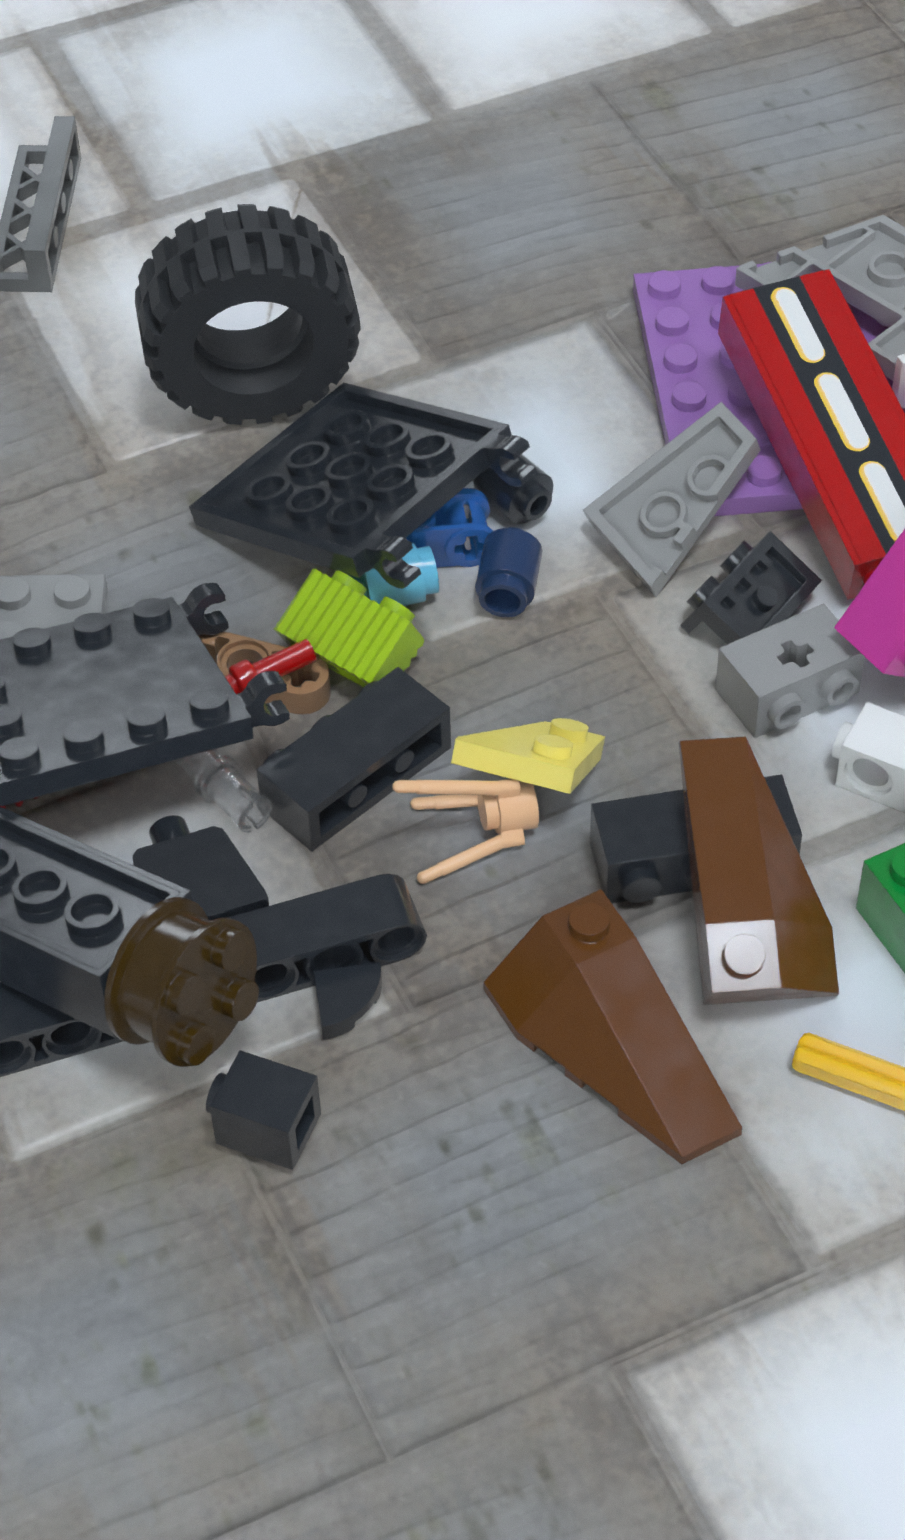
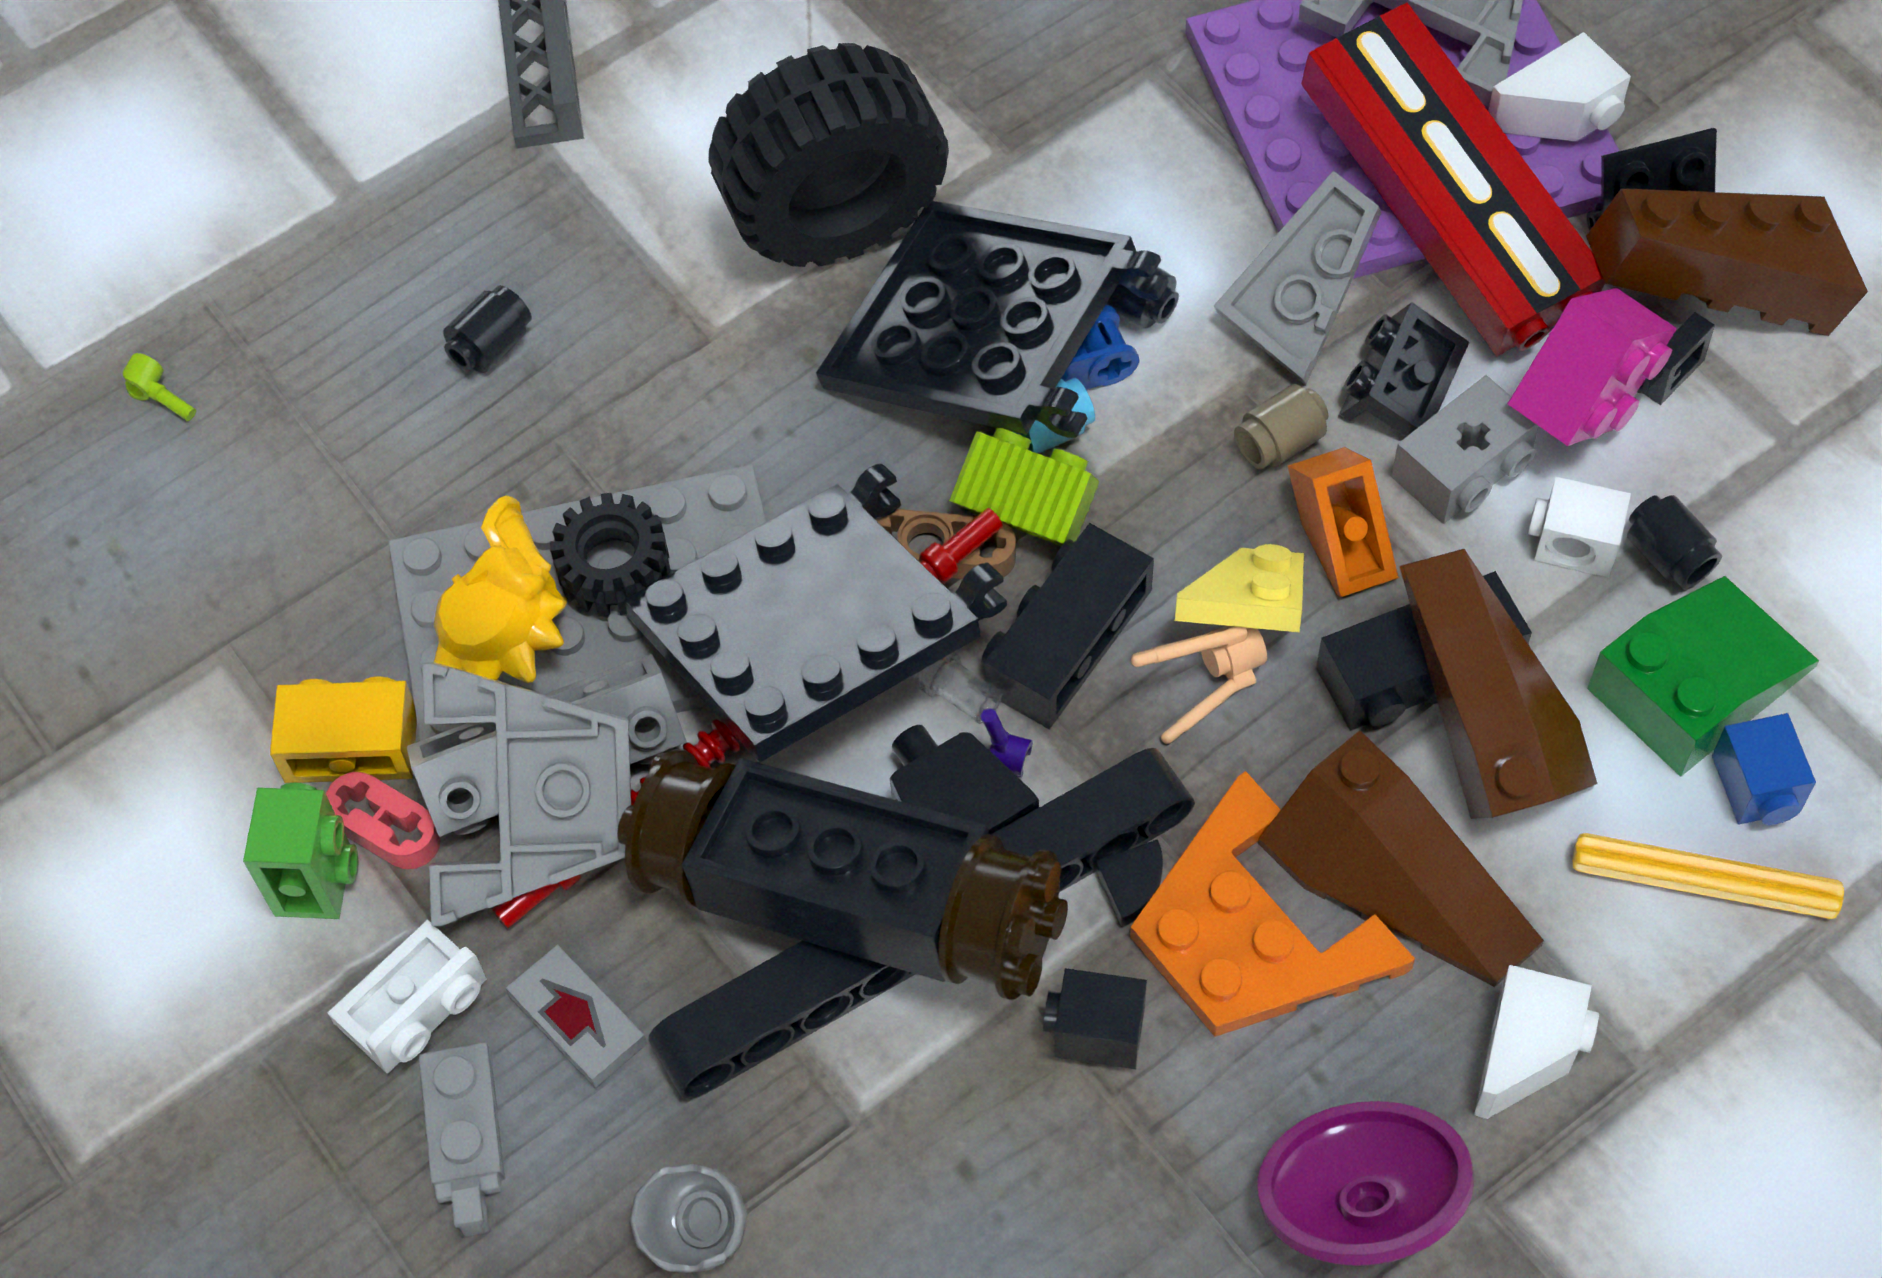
camera: 10 degrees left, 10 degrees up
(258, 855) = (1006, 747): none -> dark purple hand
(427, 1075) = (1229, 941): none -> orange wing
(480, 1312) = (1365, 1183): none -> magenta dish
(508, 571) = (1159, 388): dark blue brick -> none
(616, 622) = (1282, 426): none -> dark tan brick
(650, 711) = (1344, 519): none -> orange slope
(698, 1213) = (1533, 1037): none -> white slope

